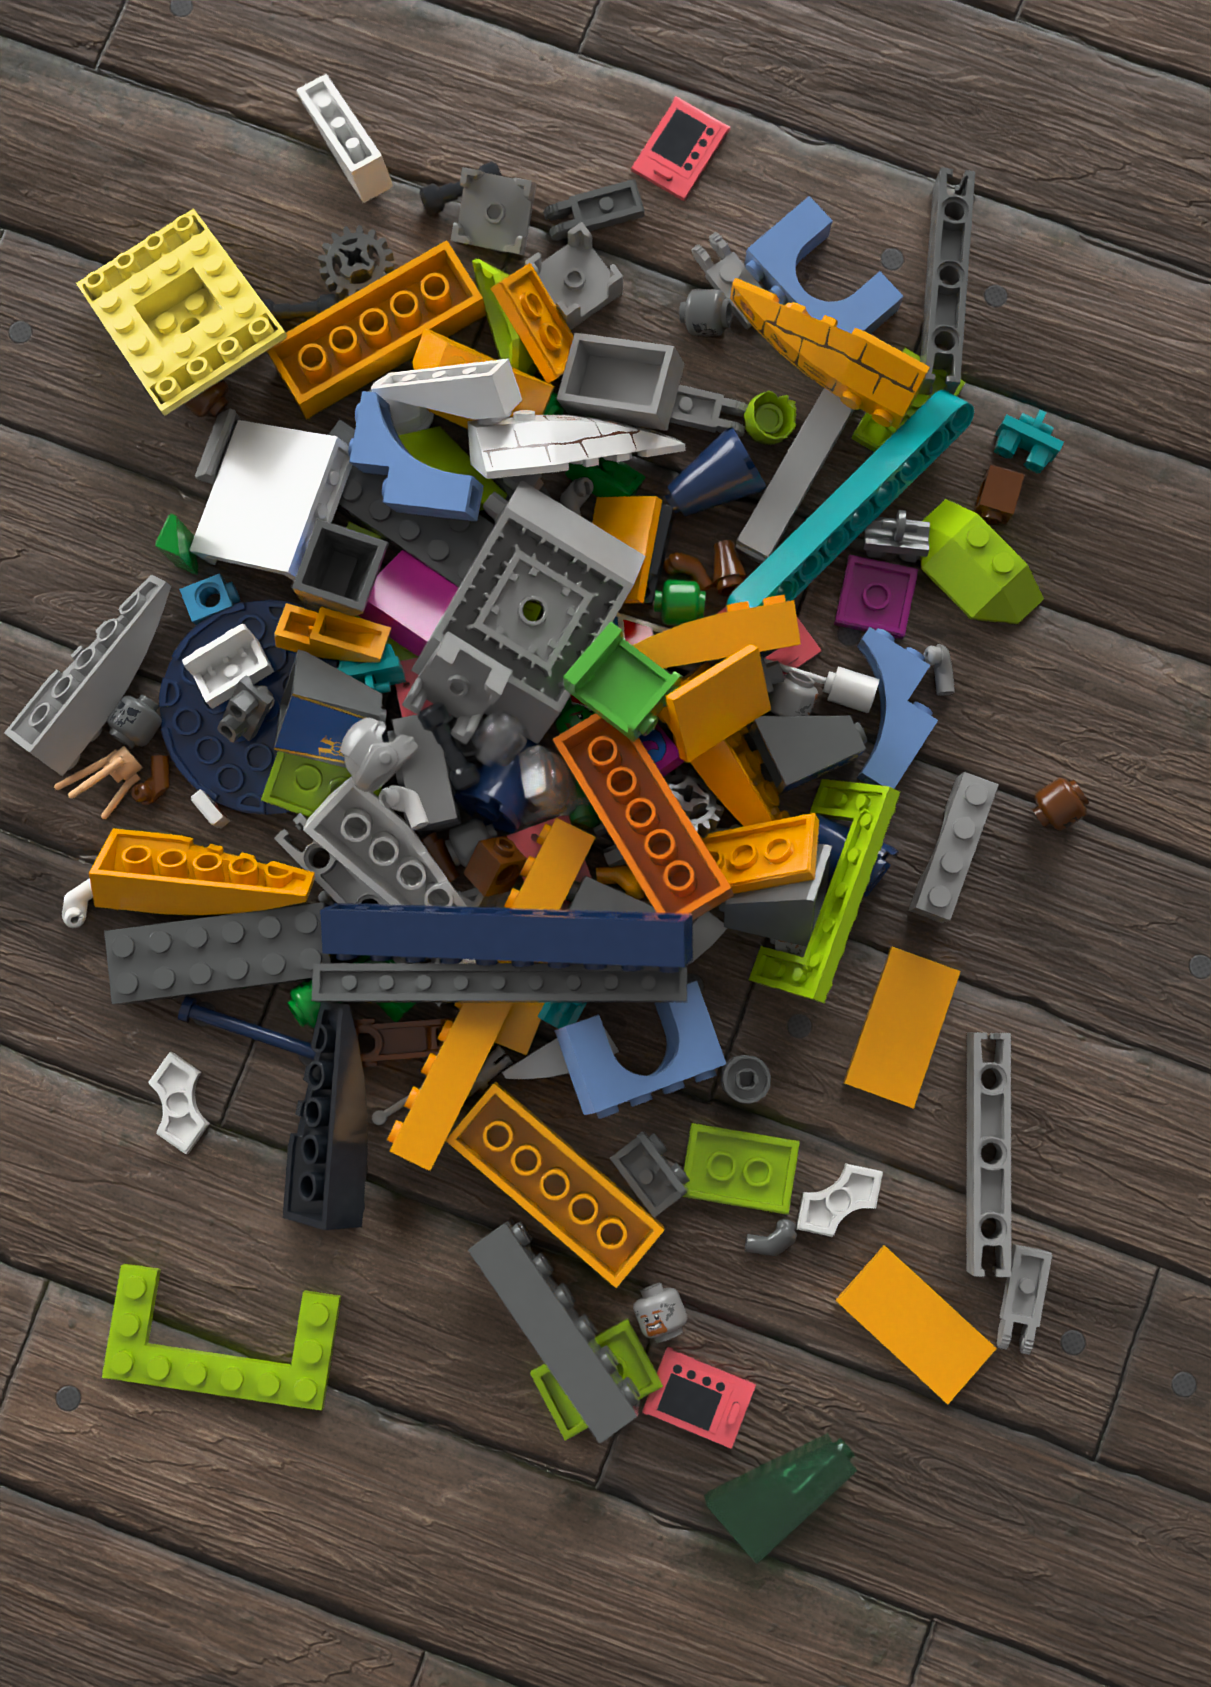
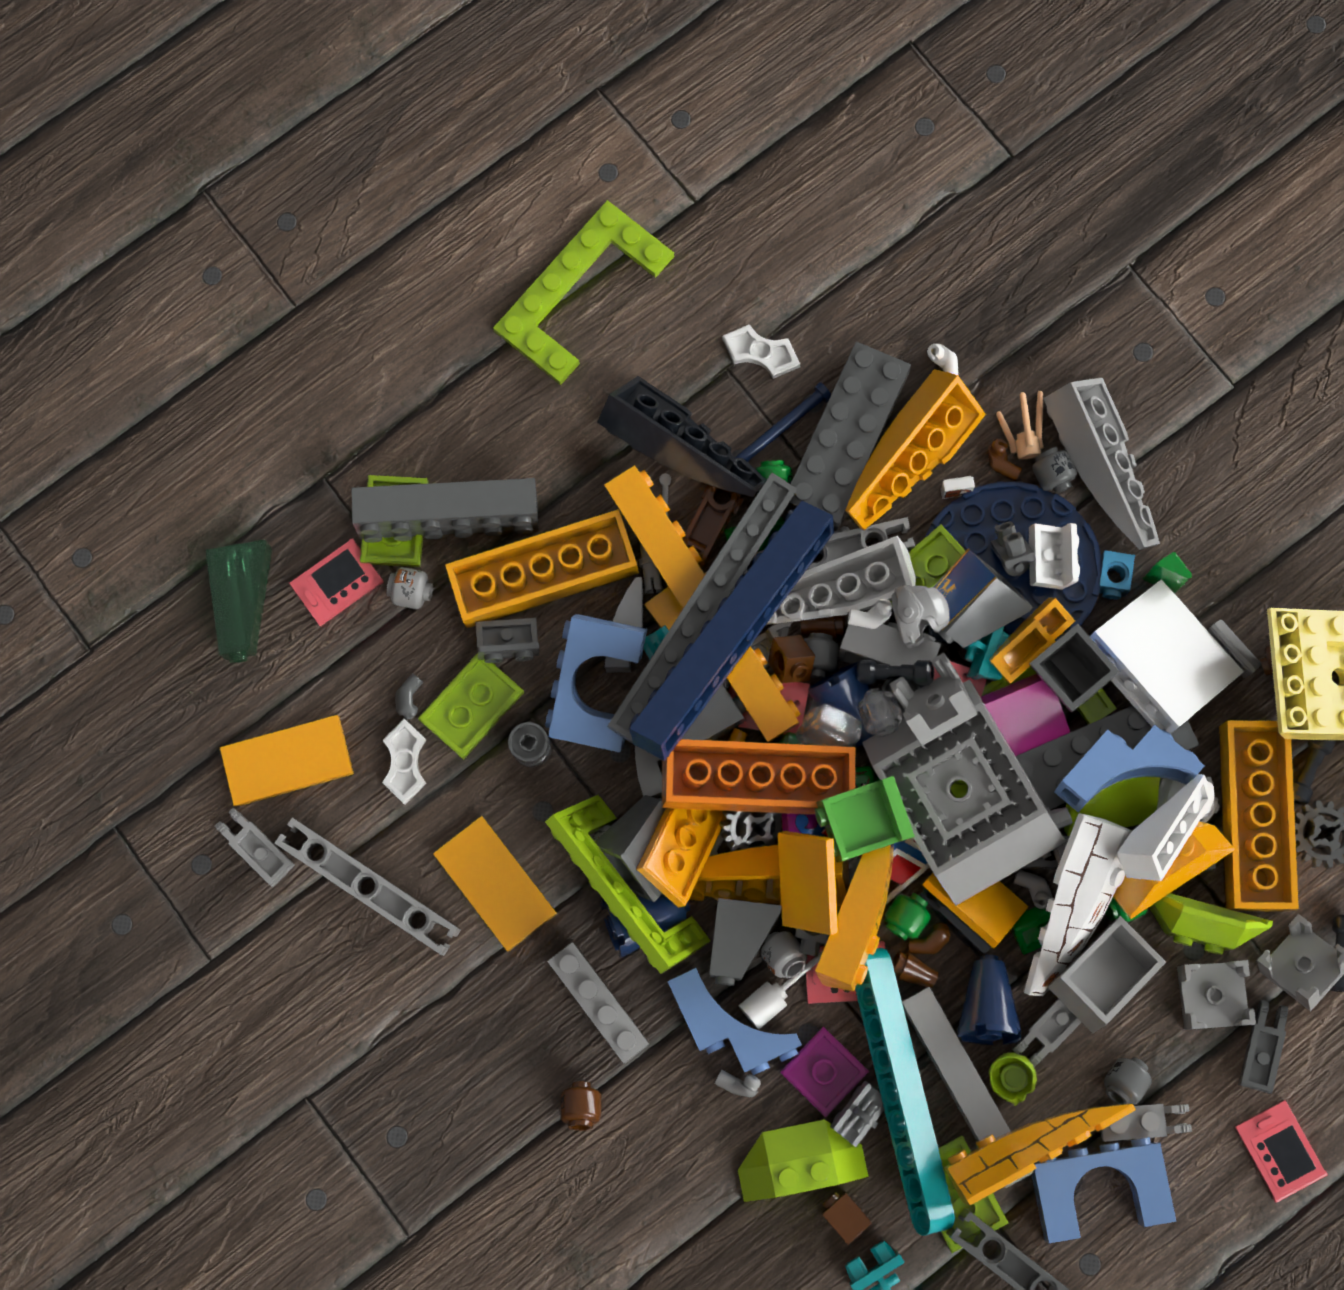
camera: 130 degrees right, 5 degrees down
(535, 320) = (1193, 937): light orange tile -> none

